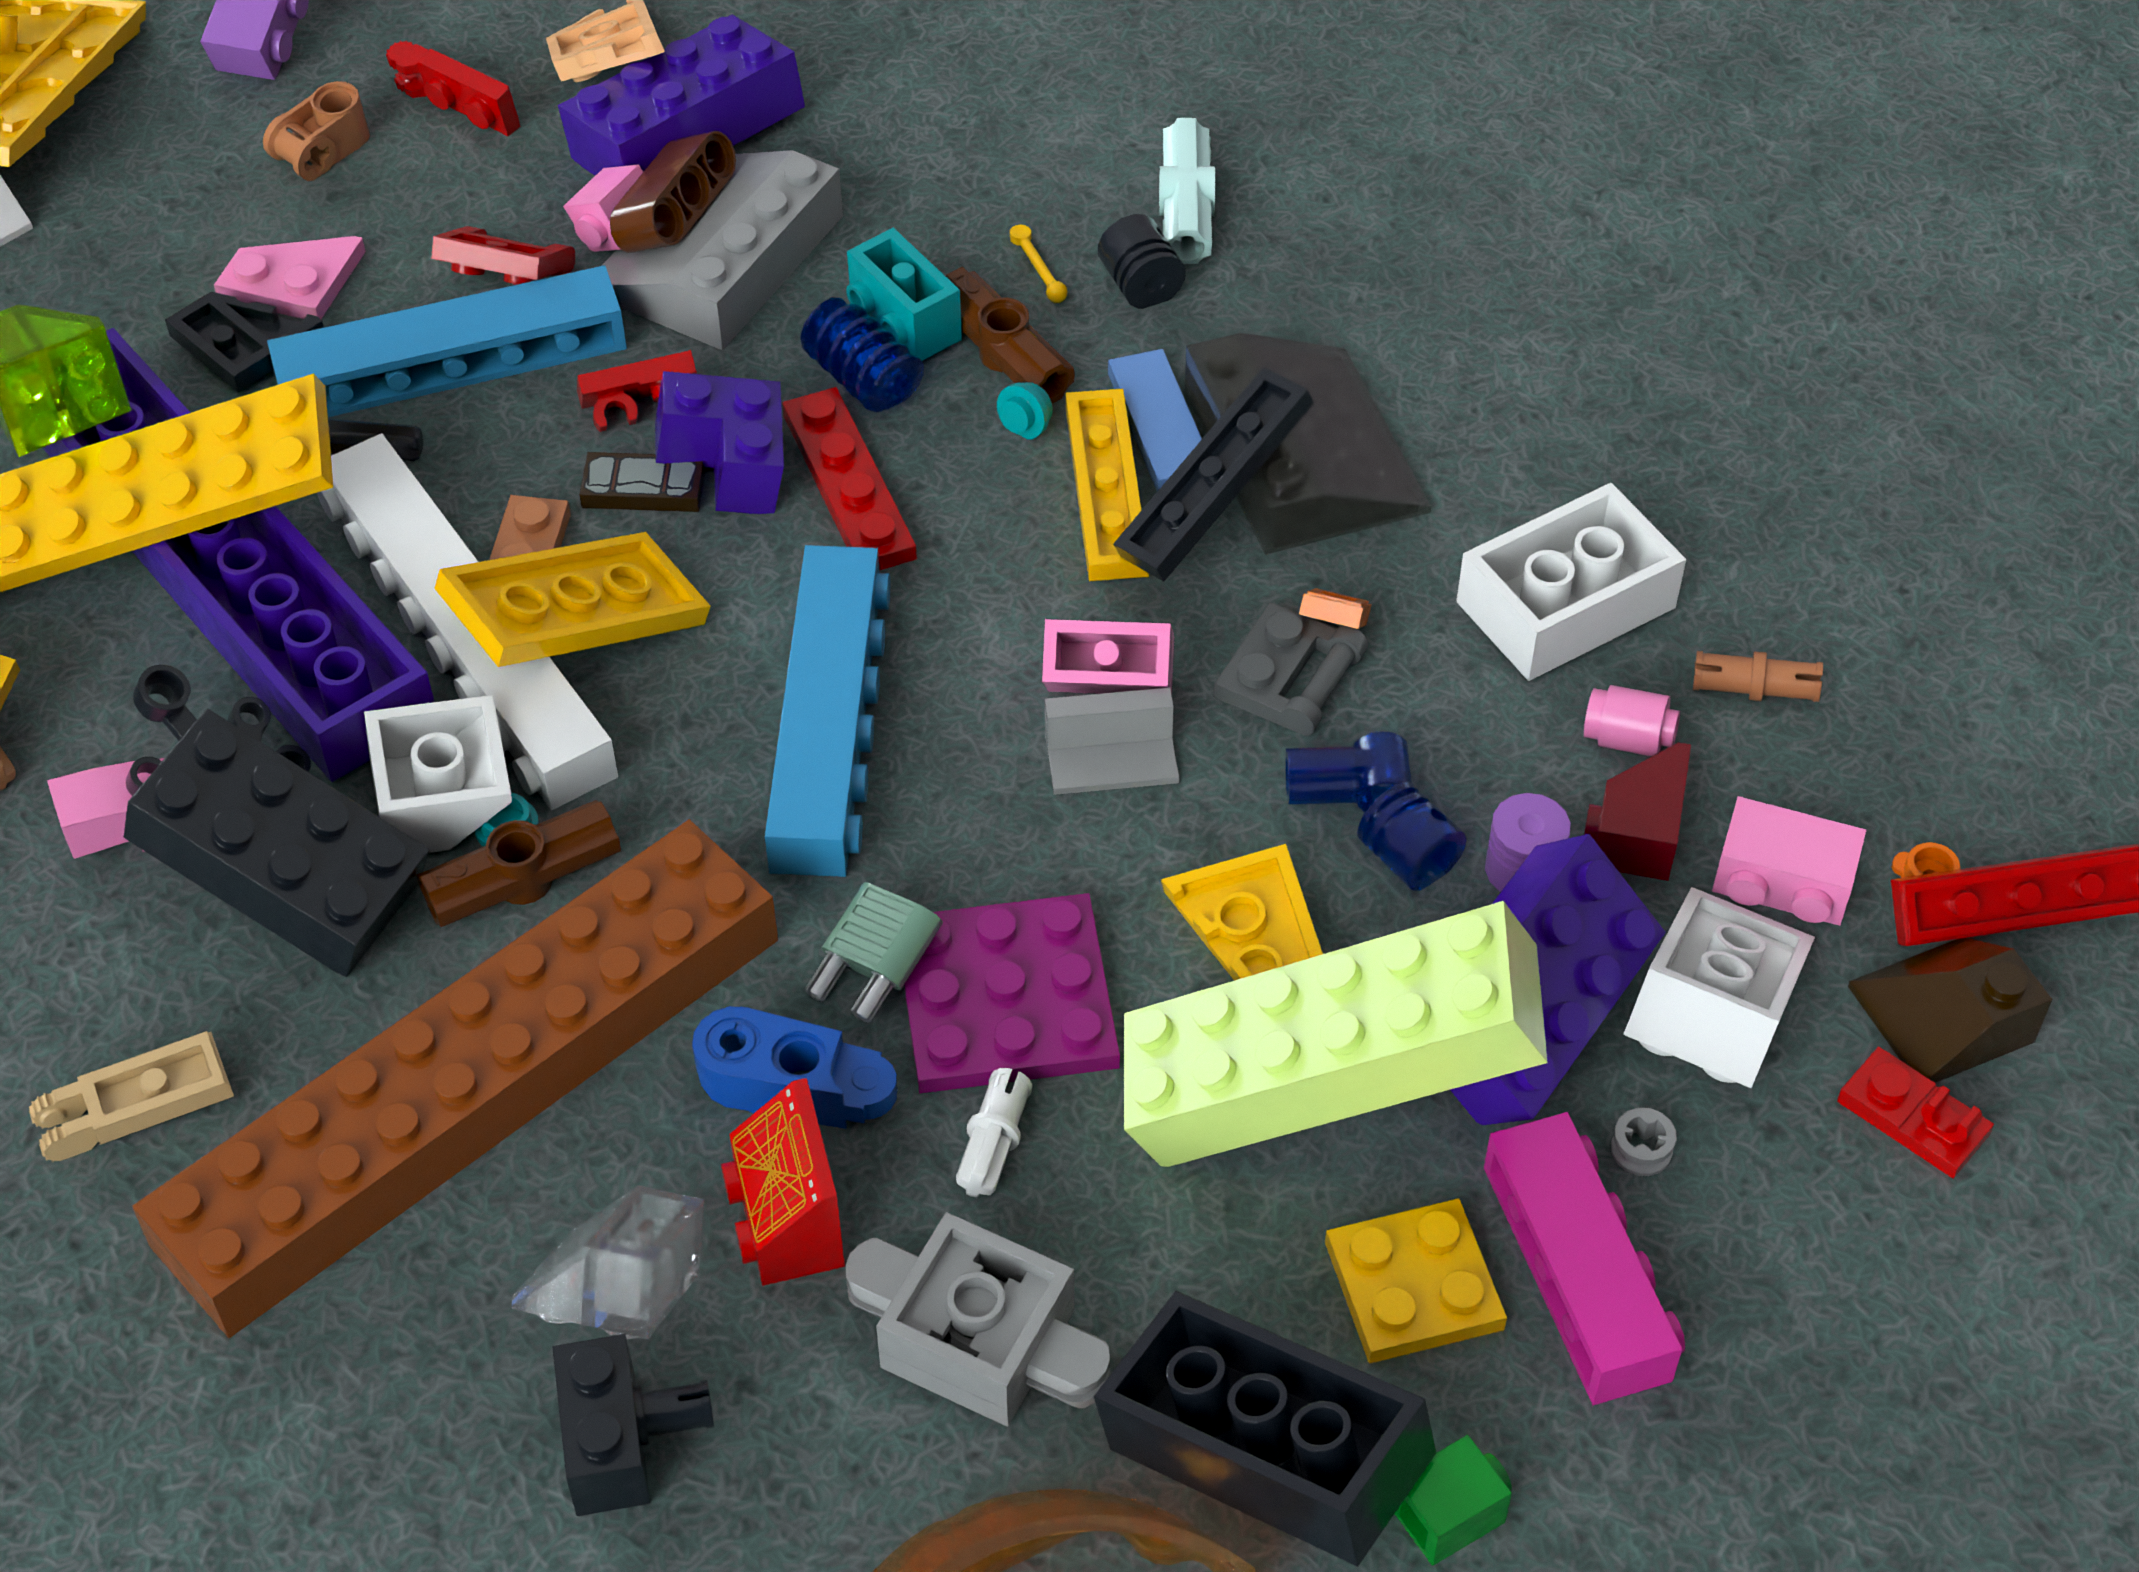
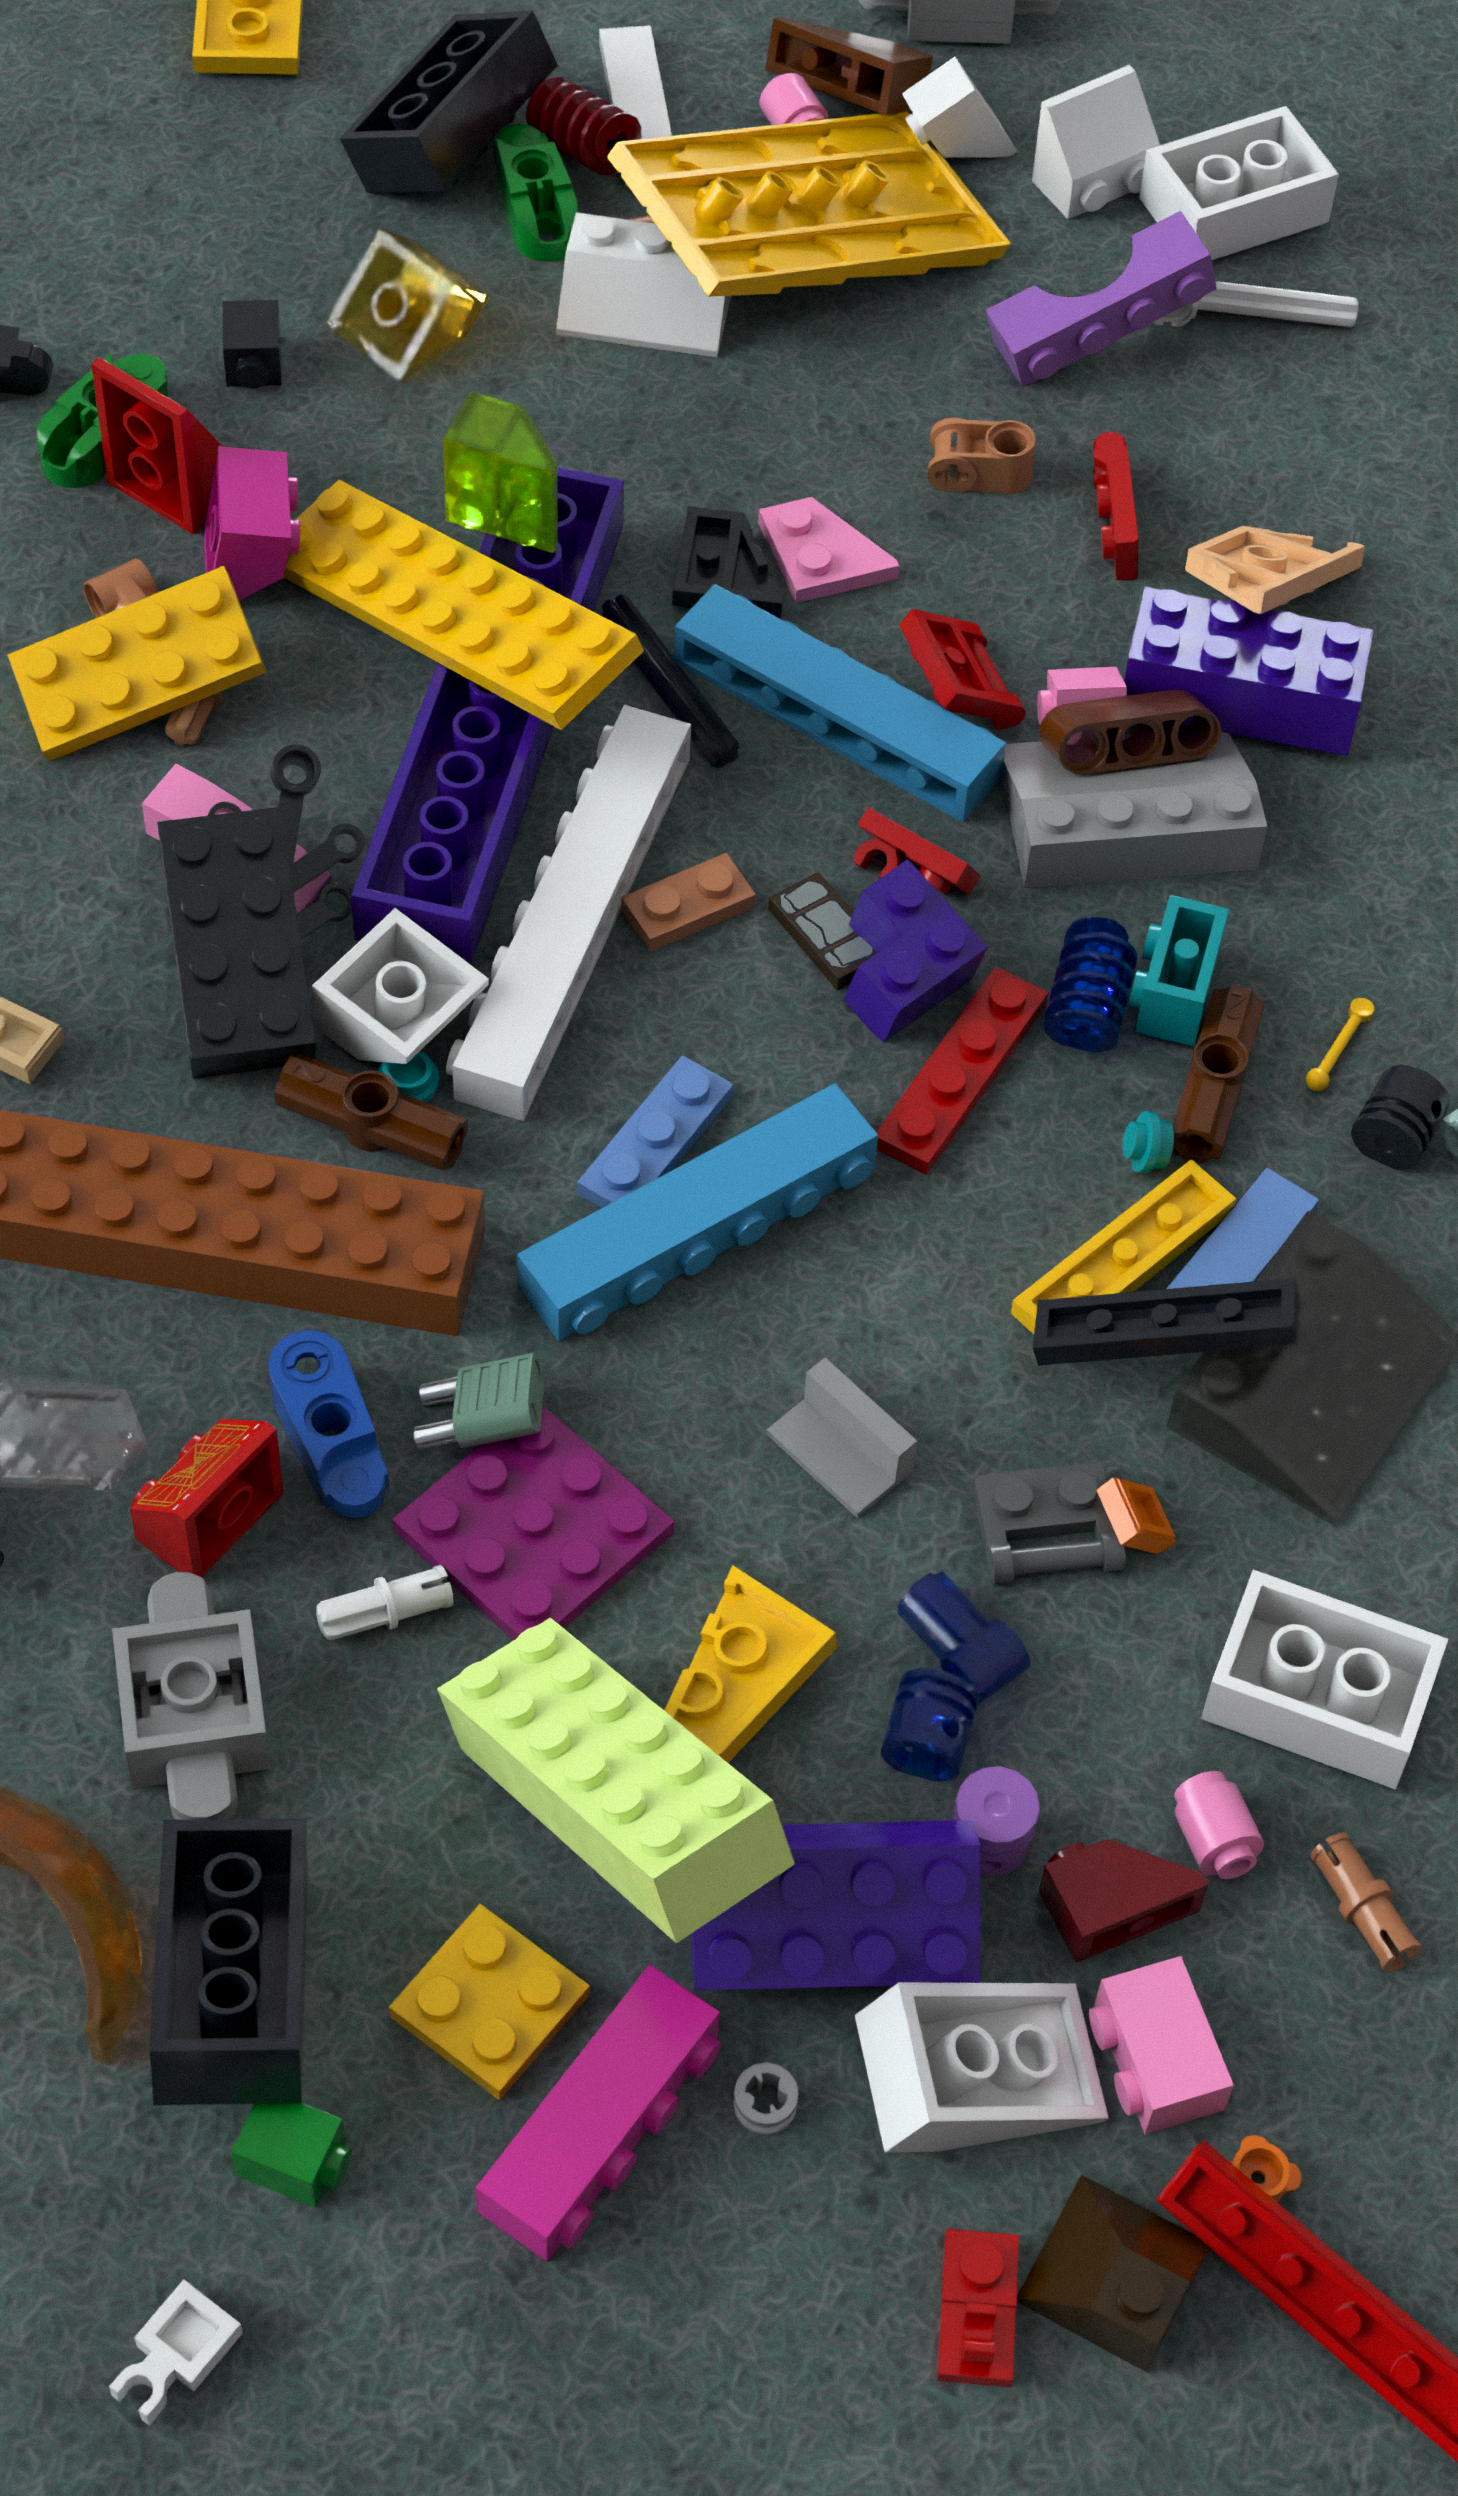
camera: 50 degrees right, 5 degrees up
(571, 598) = (638, 964): yellow plate -> none
(724, 700) = (657, 1133): none -> medium blue plate
(1107, 656) = (916, 1377): bright pink brick -> none

